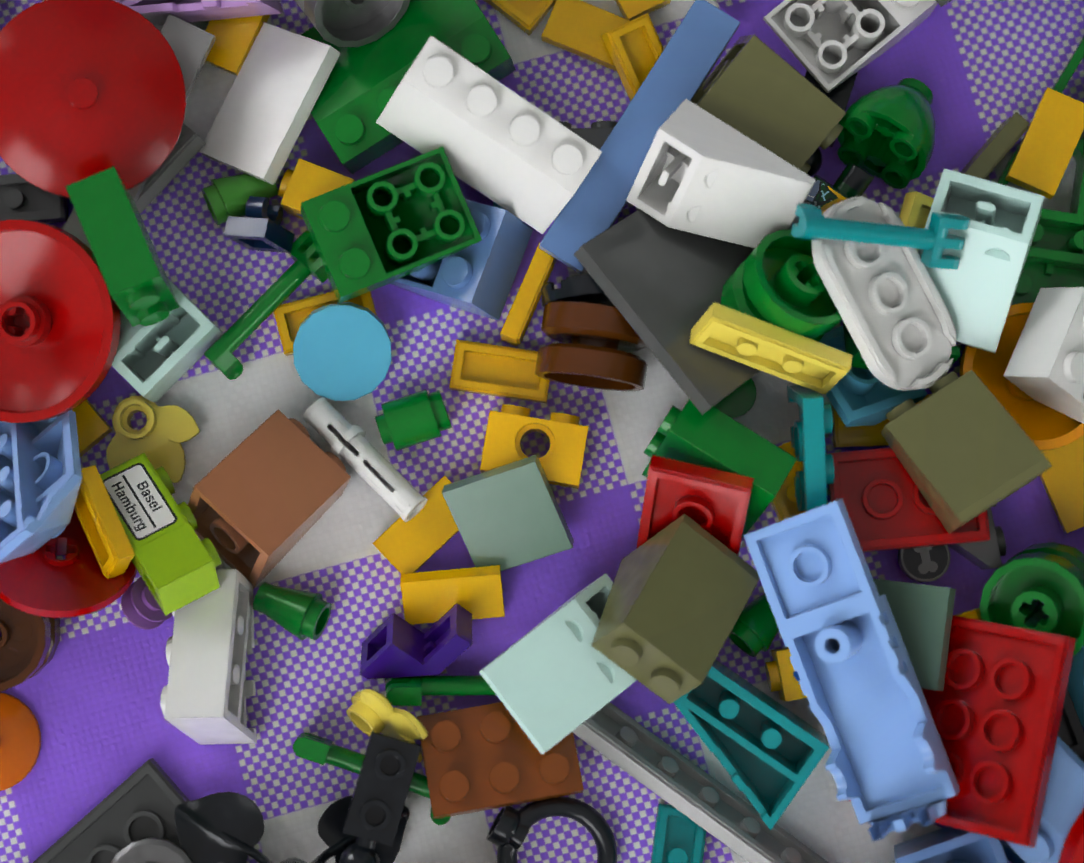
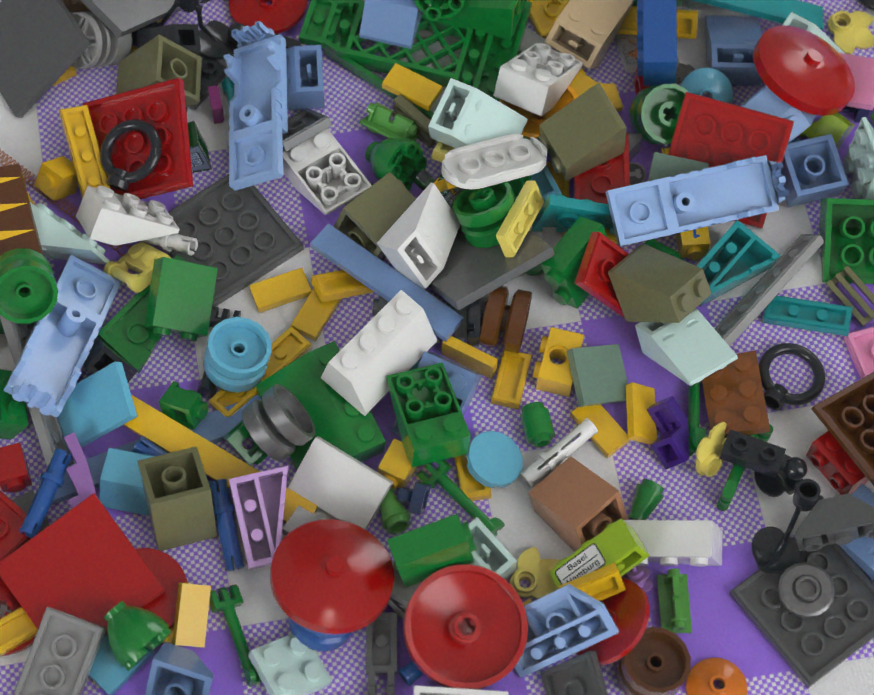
camera: 90 degrees left, 20 degrees down
(118, 666) = (674, 602): none -> bright green hinge
(933, 241) = (469, 135): teal hinge -> none
(963, 120) = (379, 122): none -> bright green hinge

